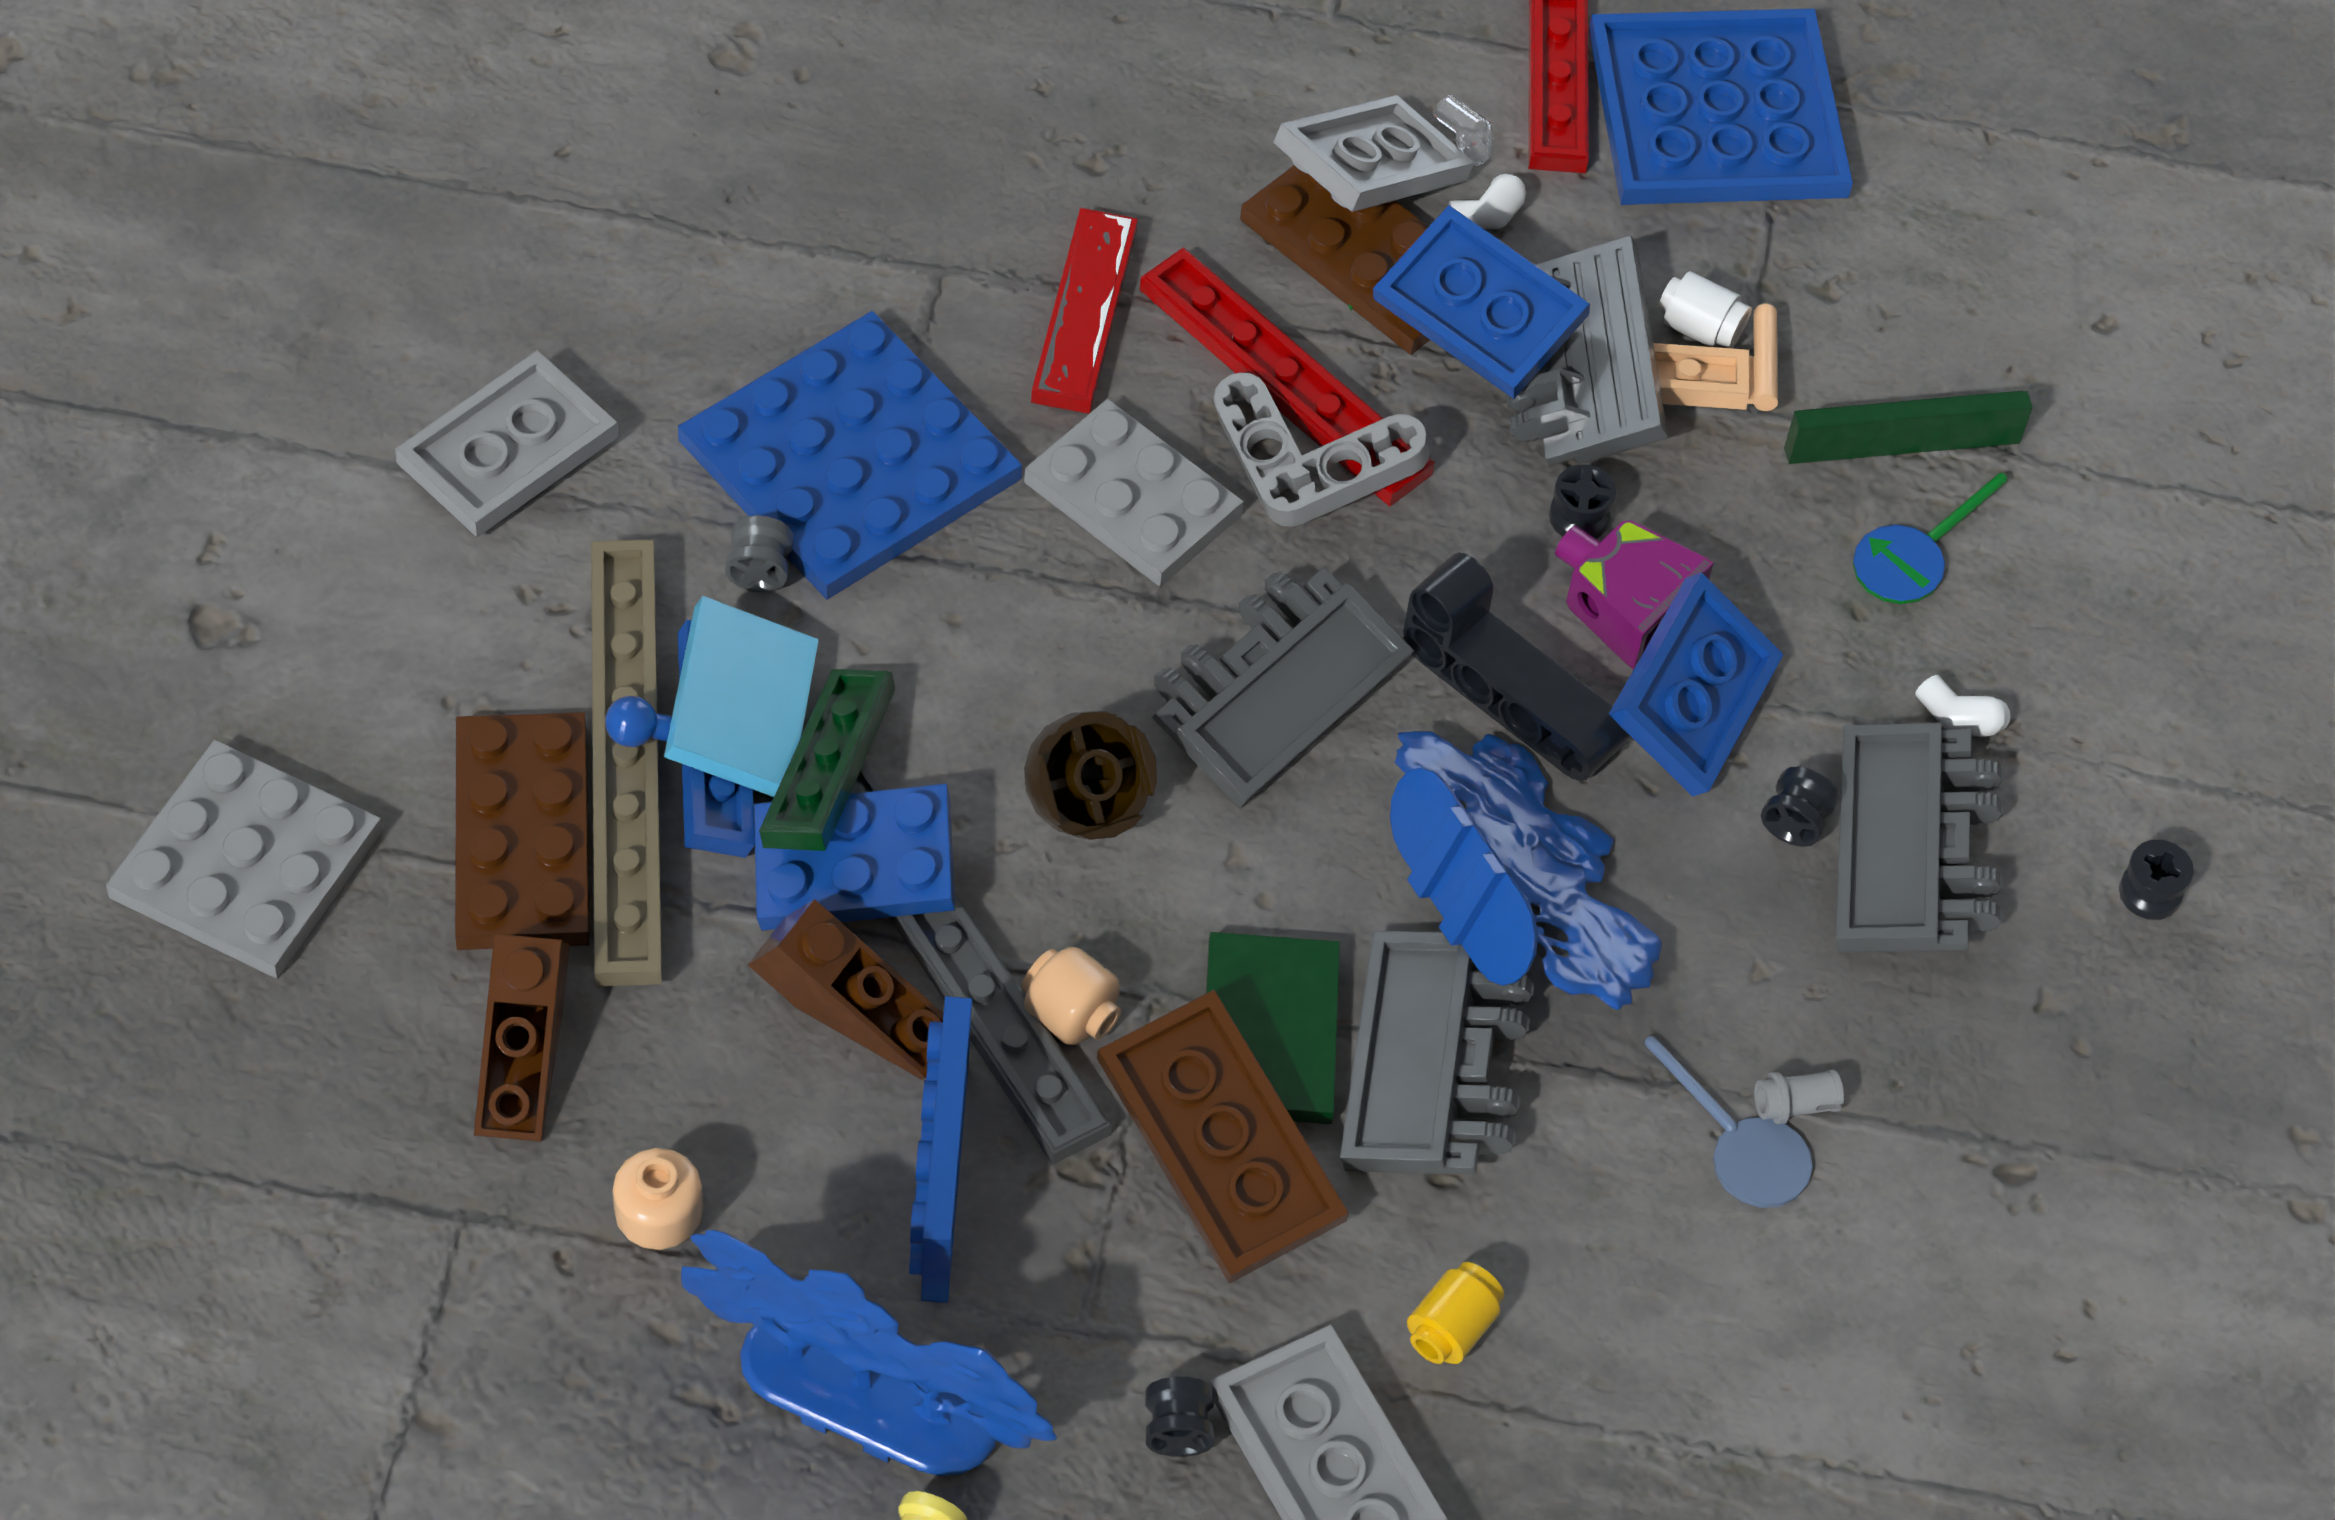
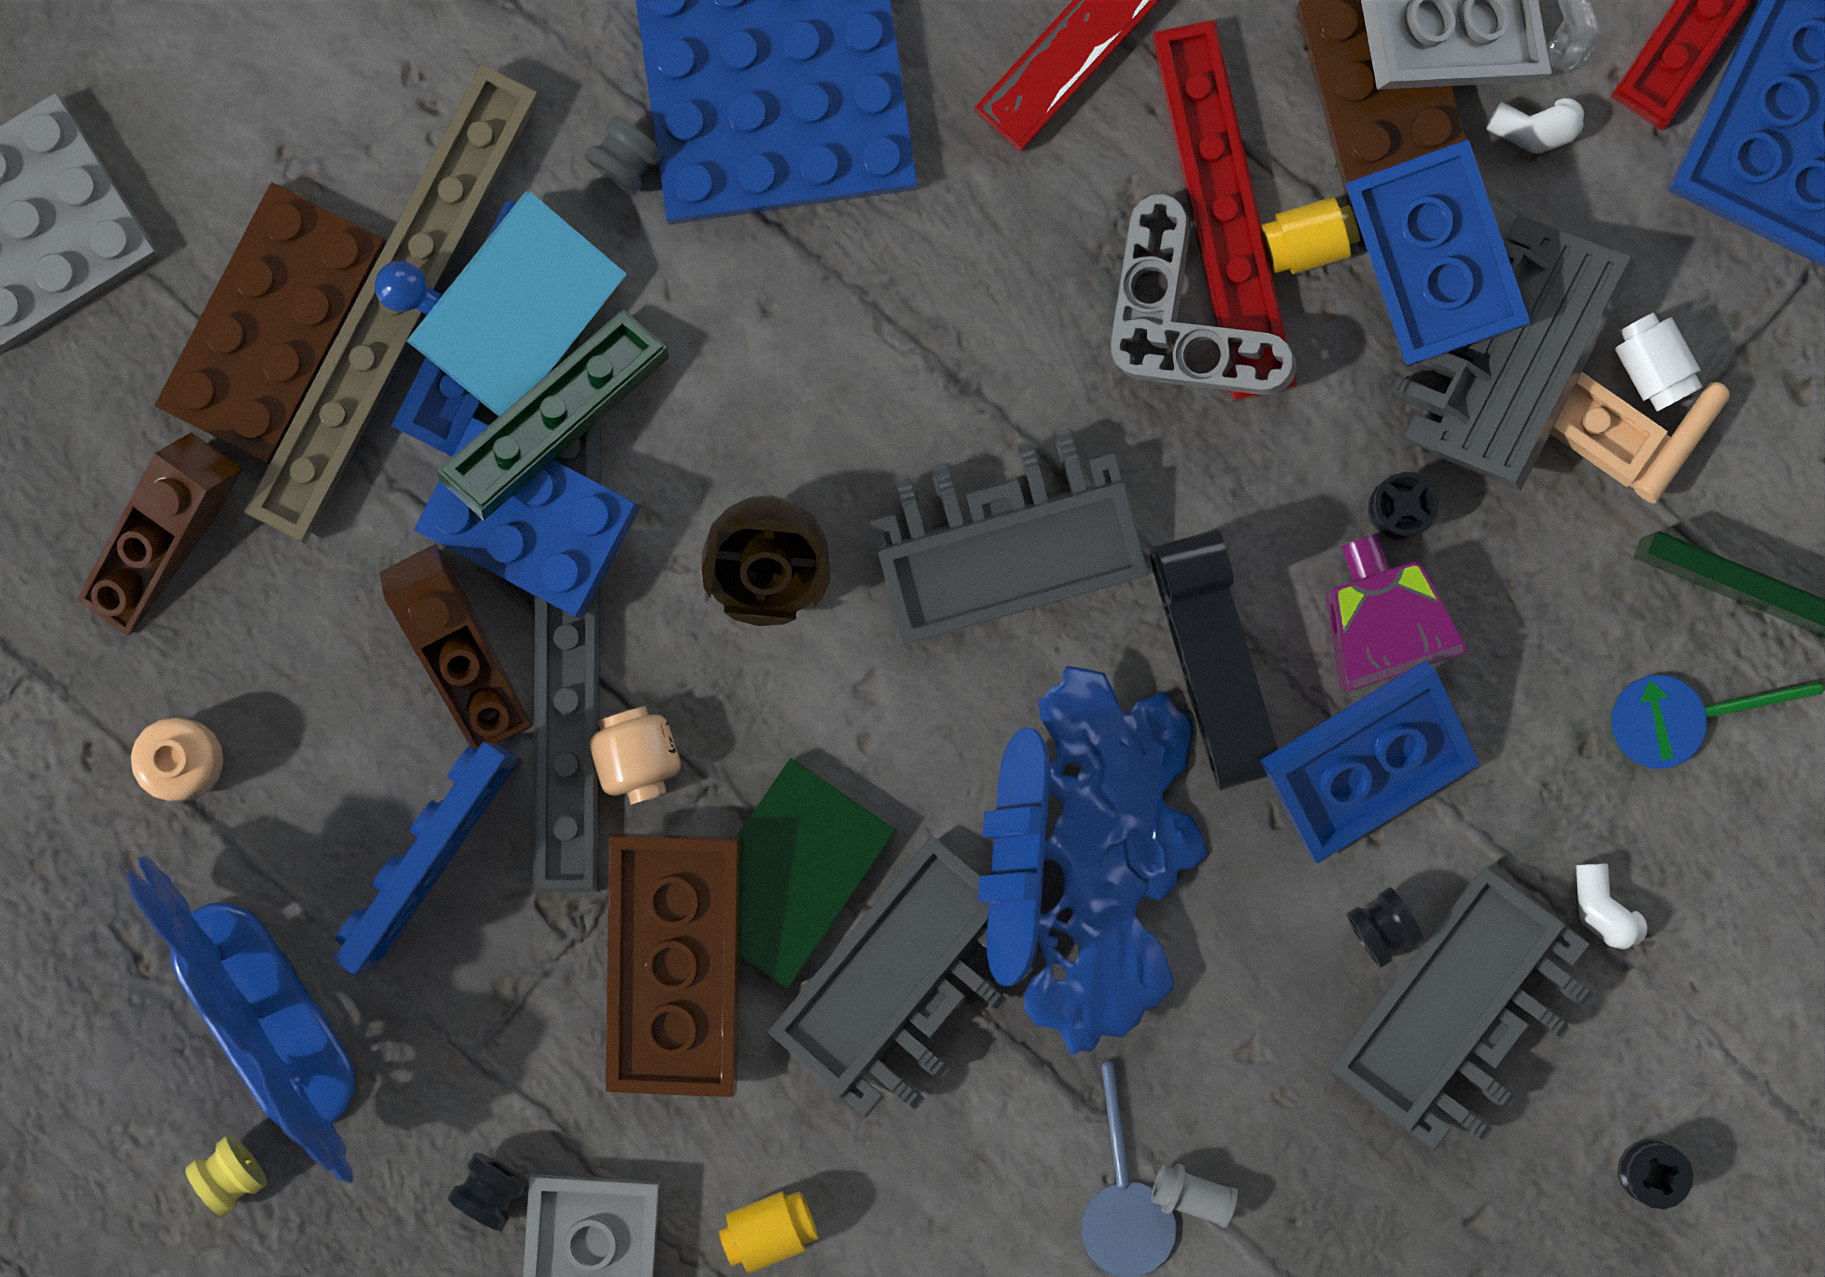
camera: 35 degrees right, 30 degrees up
(1133, 492) = (1005, 263): light grey plate -> none
(1370, 352) = (1310, 236): none -> yellow brick

